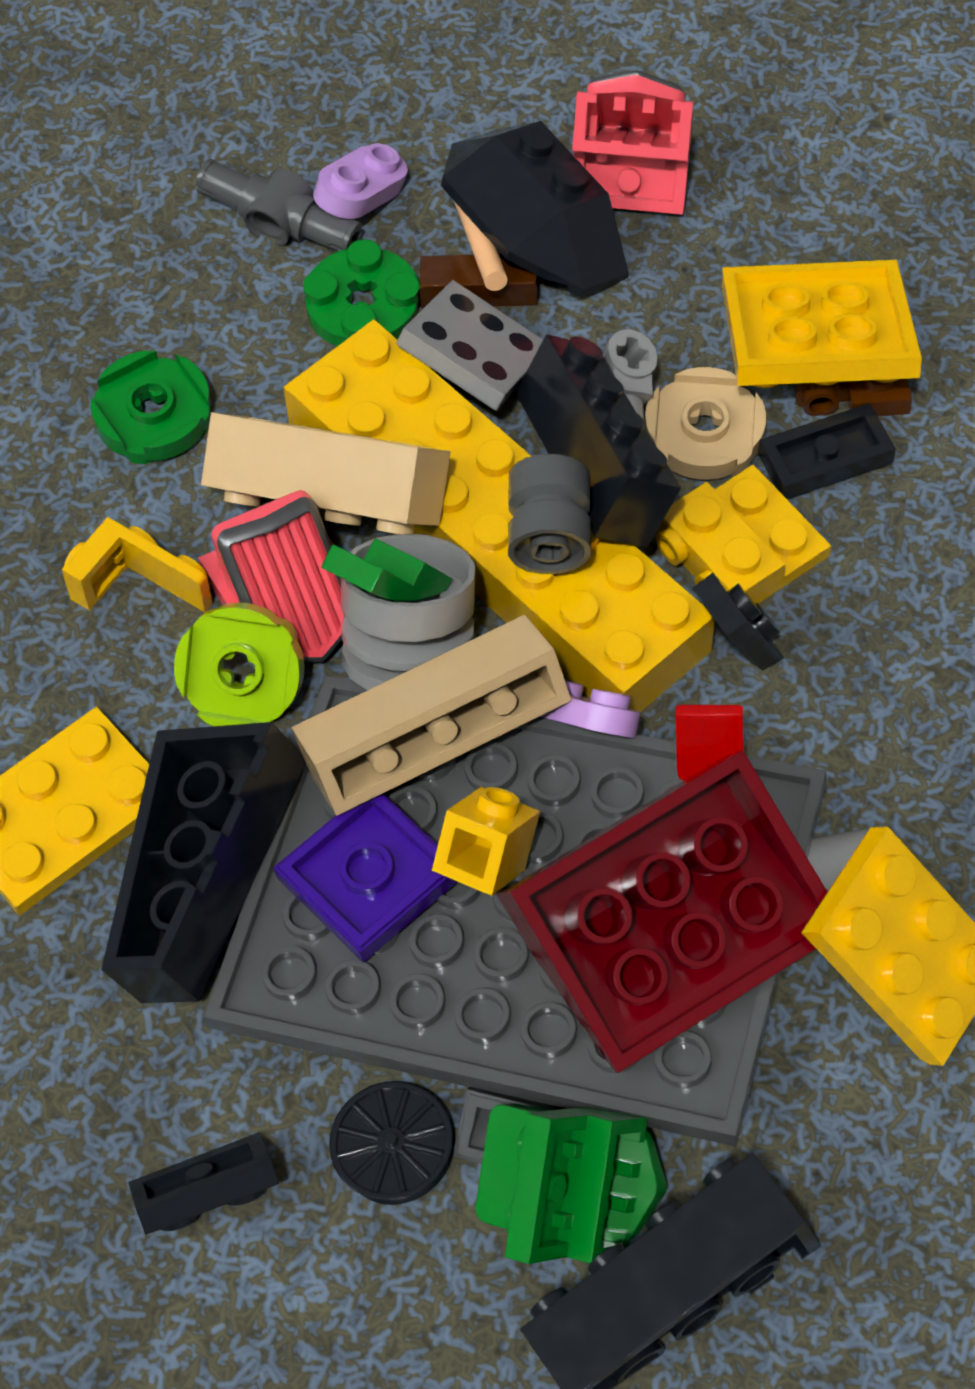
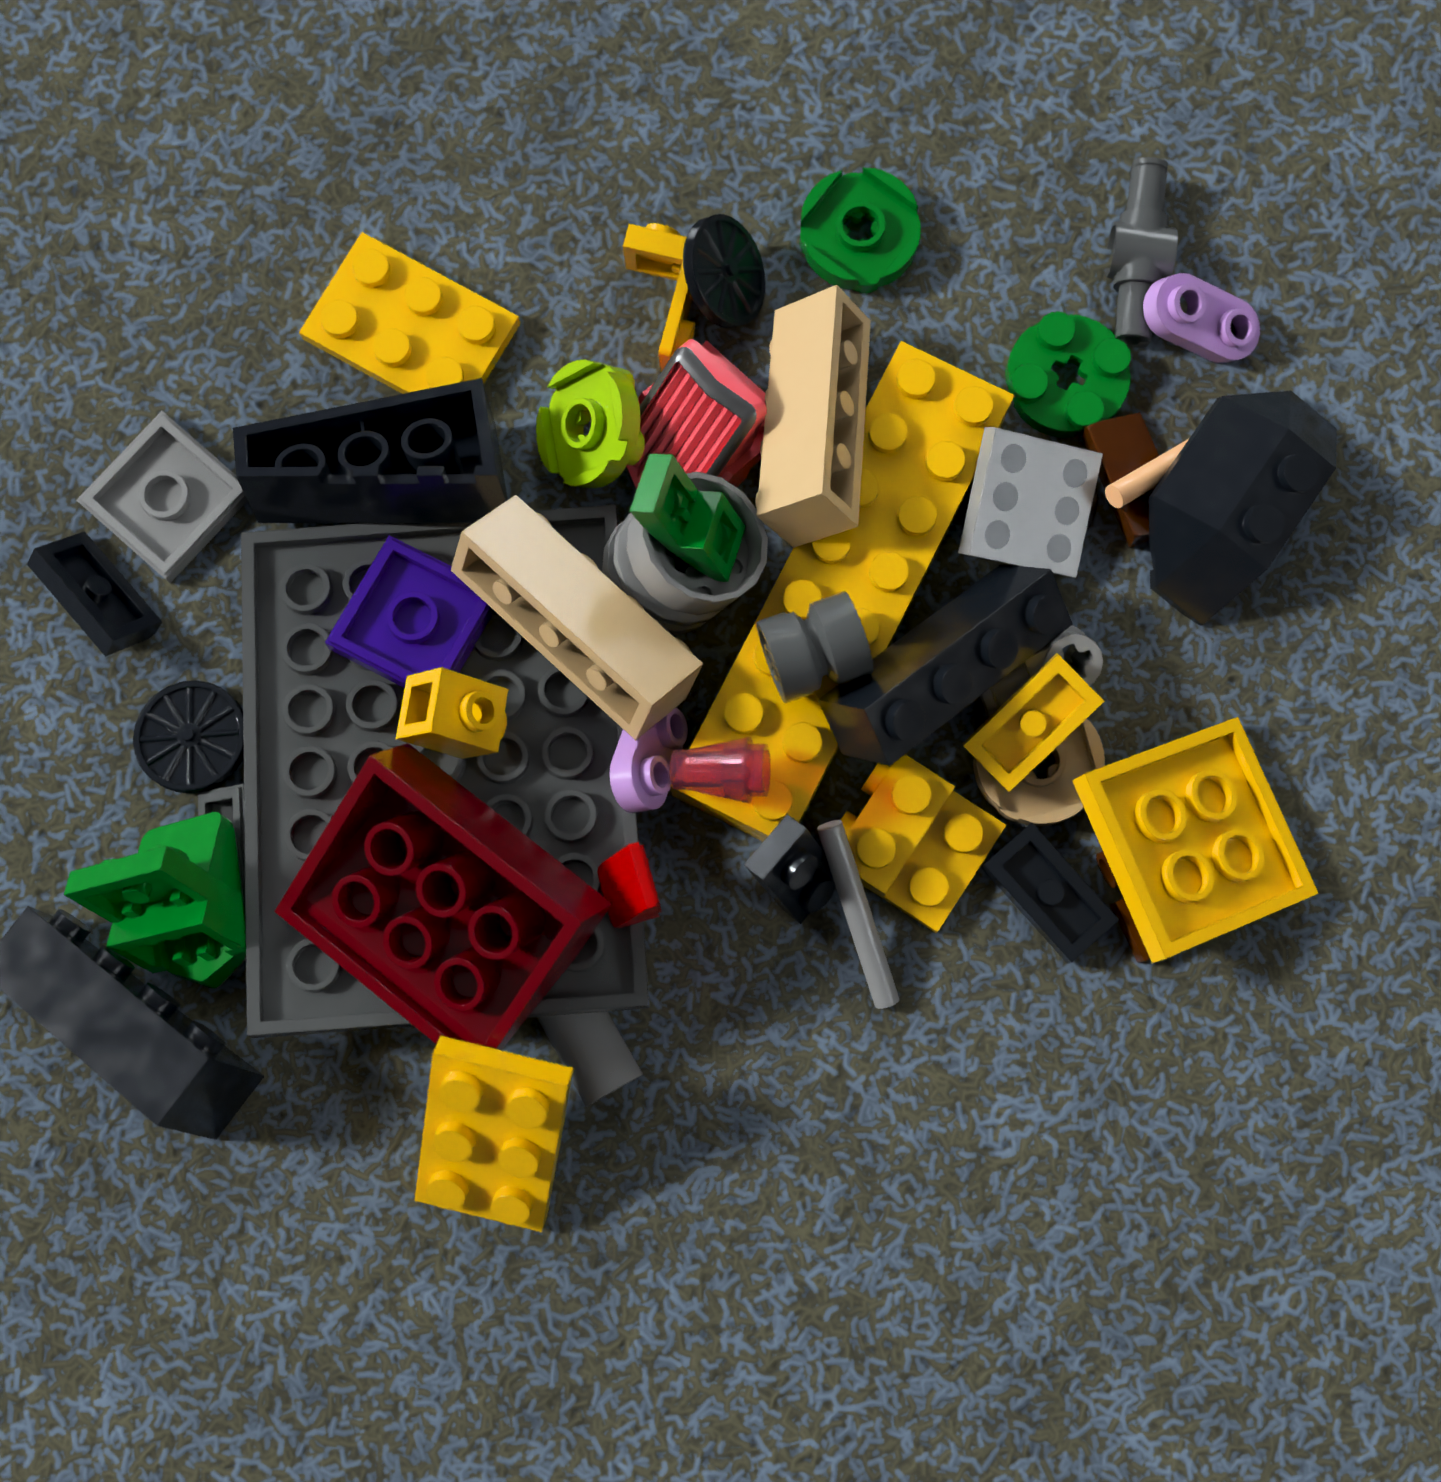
camera: 70 degrees right, 20 degrees up
(126, 1092) = (165, 496): none -> light grey tile
(143, 513) = (724, 271): none -> black wheel
(632, 623) = (724, 769): none -> clear pink cone
(635, 140) = (1345, 574): coral piece -> none
(675, 396) = (1033, 722): none -> yellow plate
(802, 593) = (858, 914): none -> light grey bar

